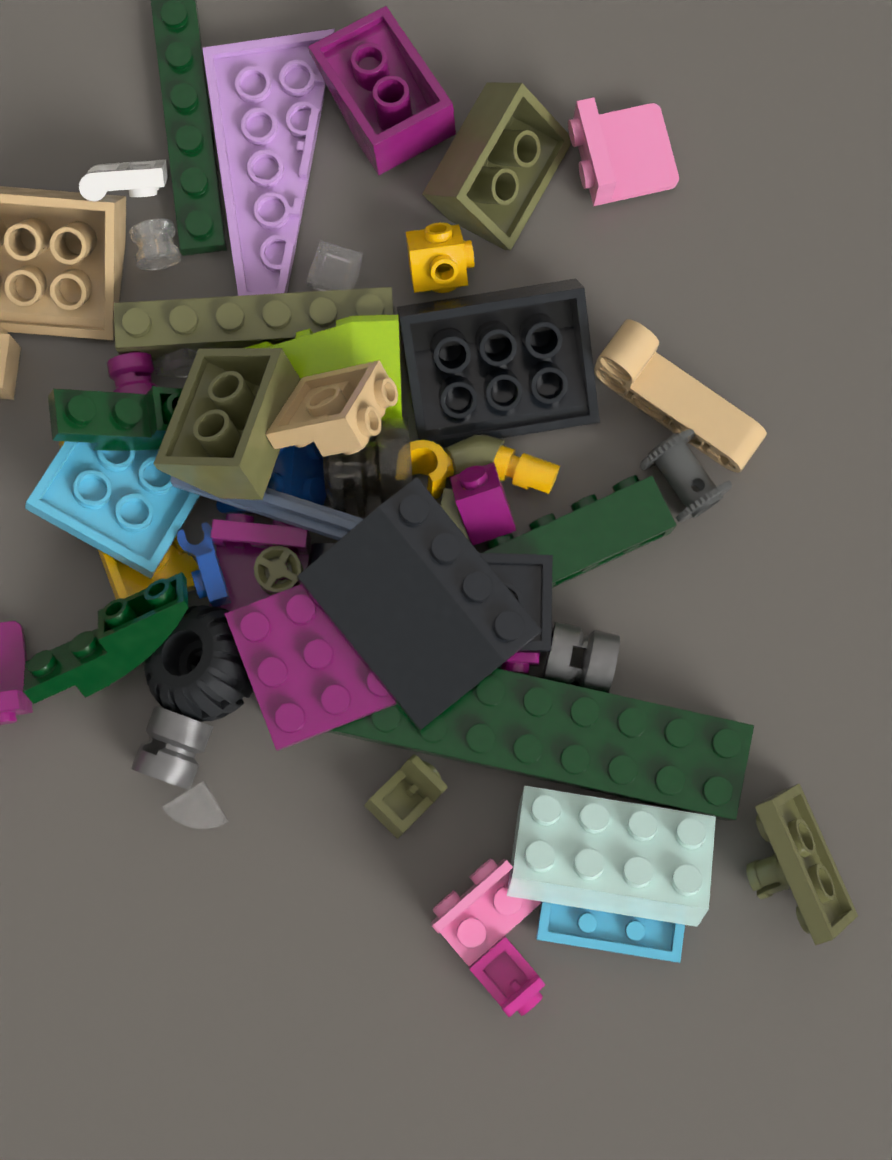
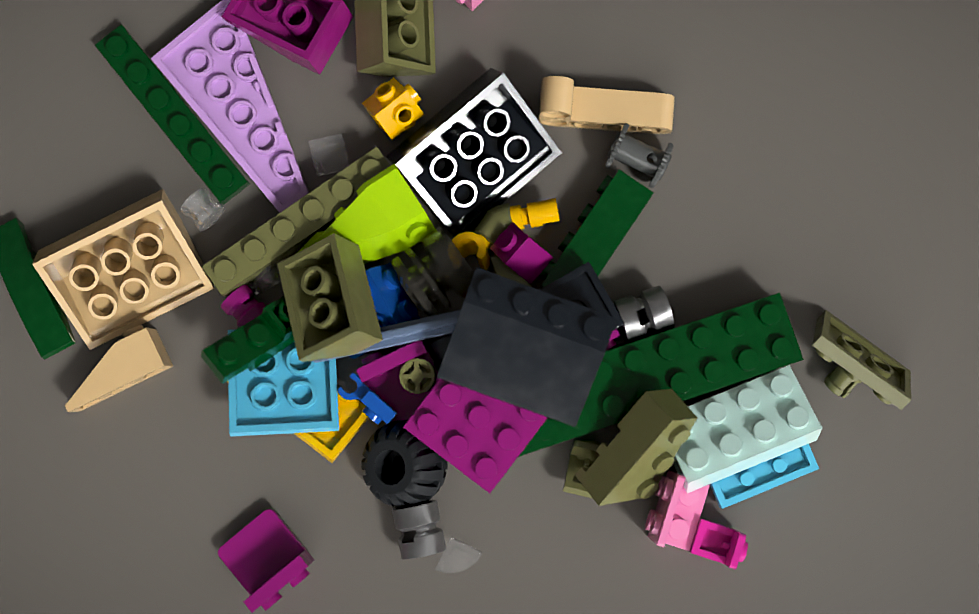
camera: 25 degrees left, 5 degrees up
(124, 639) = (345, 480): dark green slope -> none
(138, 177) = (163, 172): white plate -> none
(335, 410) = (393, 253): tan plate -> none
(481, 808) = (641, 451): none -> olive wedge

